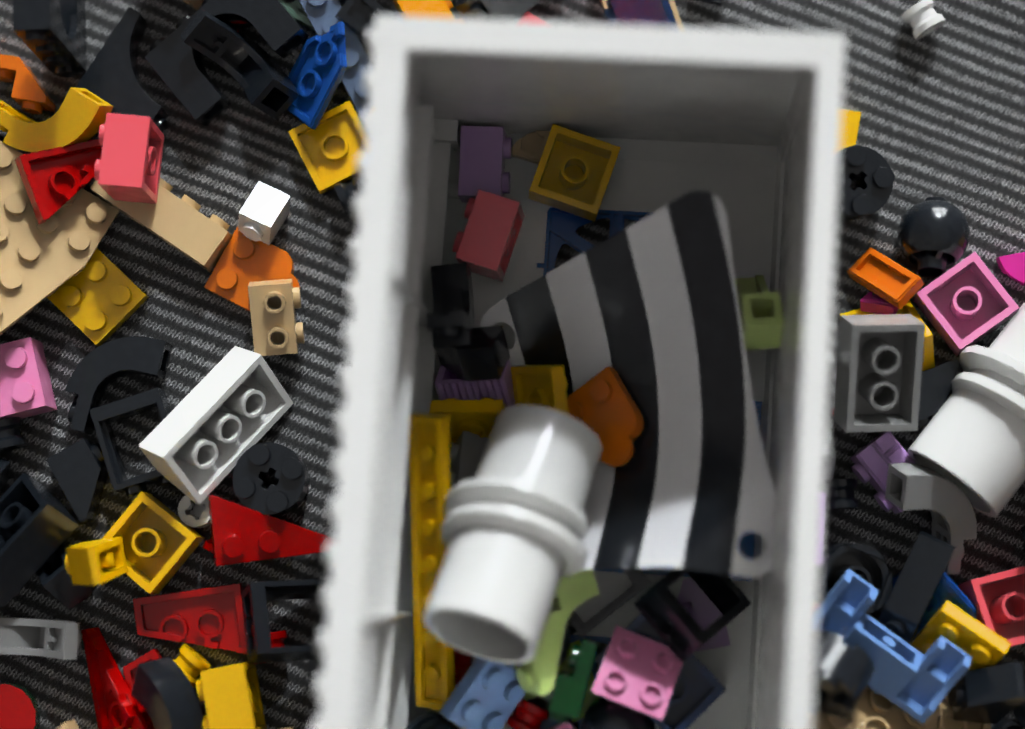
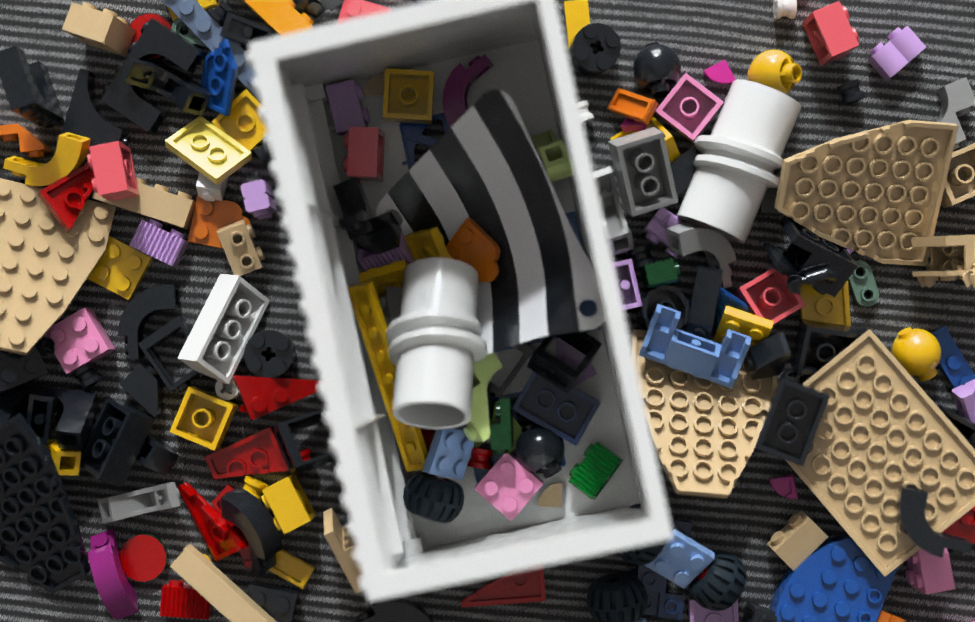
camera: 20 degrees left, 5 degrees up
(96, 561) = (173, 439): yellow slope -> none
(164, 278) = (159, 243): none -> lavender brick
(271, 168) = (208, 150): none -> light yellow plate
(321, 256) = (259, 199): none -> lavender brick
(638, 673) = (541, 409): bright pink hinge -> none
(650, 176) = (458, 85): none -> magenta arch
(839, 674) = (663, 374): black brick -> none
(860, 526) = (660, 273): none -> dark green brick

